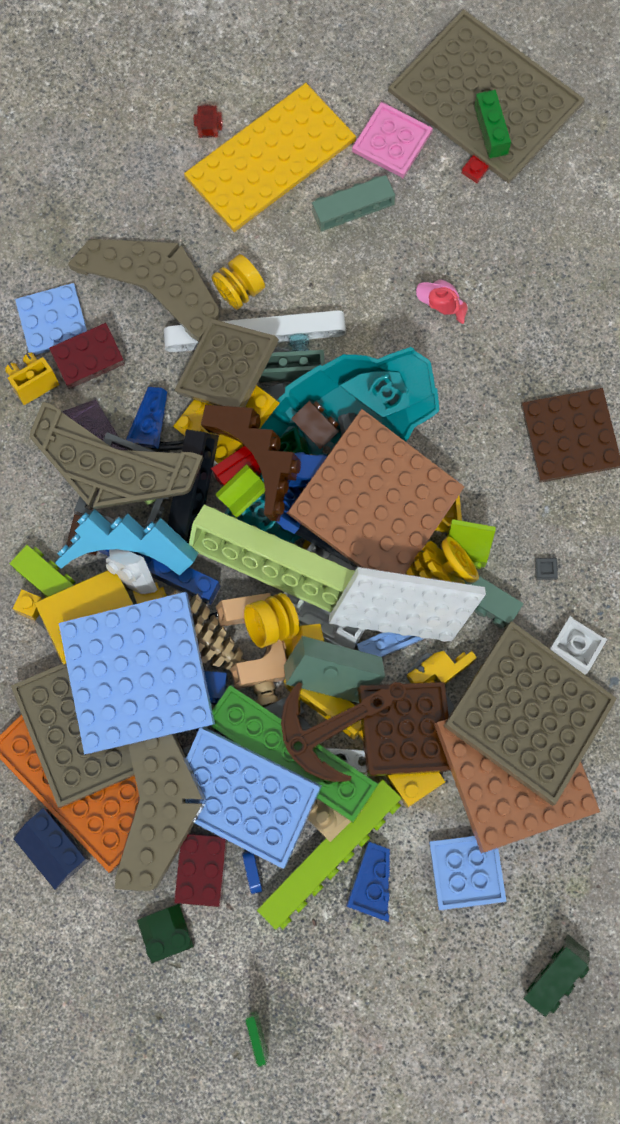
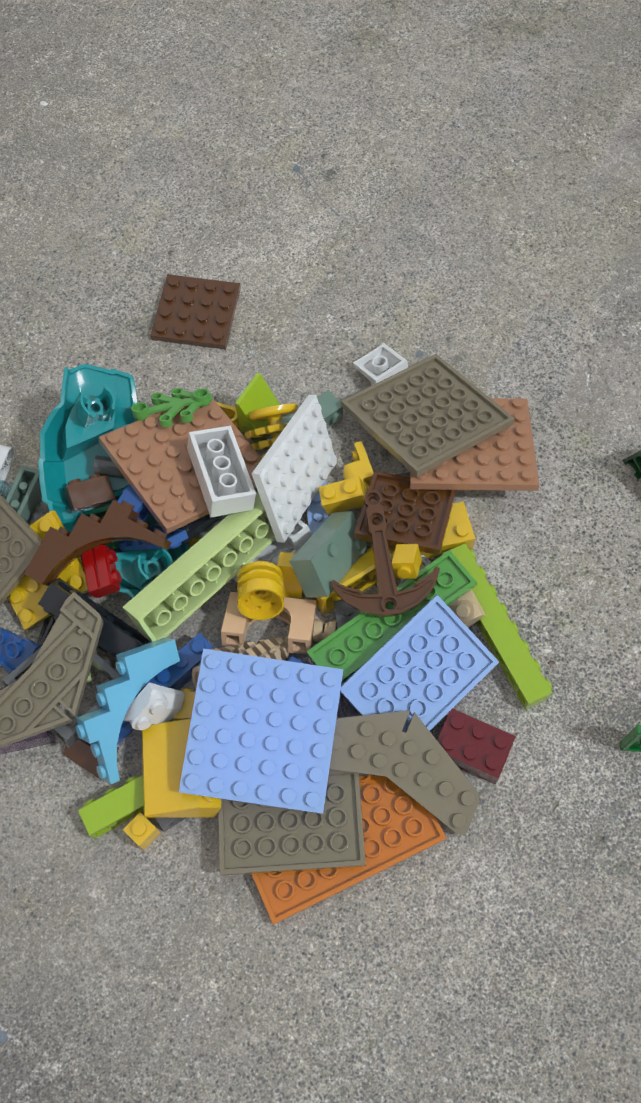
camera: 70 degrees left, 10 degrees down
(50, 848) = (402, 892): dark blue slope -> none
(165, 933) = (523, 804): dark green slope -> none
(241, 490) = (125, 570): lime panel -> none
(252, 872) = (488, 699): blue beam -> none
(348, 746) = (406, 561): none -> yellow brick
(365, 536) = (221, 471): none -> white brick
(371, 884) = (535, 601): blue wing -> none
(404, 660) = (342, 495): none -> yellow brick
(428, 463) = (173, 404): none -> bright green plant
(443, 298) = (26, 360): coral hair -> none
(465, 875) = (547, 518): light blue plate -> none
(546, 569) = (303, 368): dark grey tile -> none

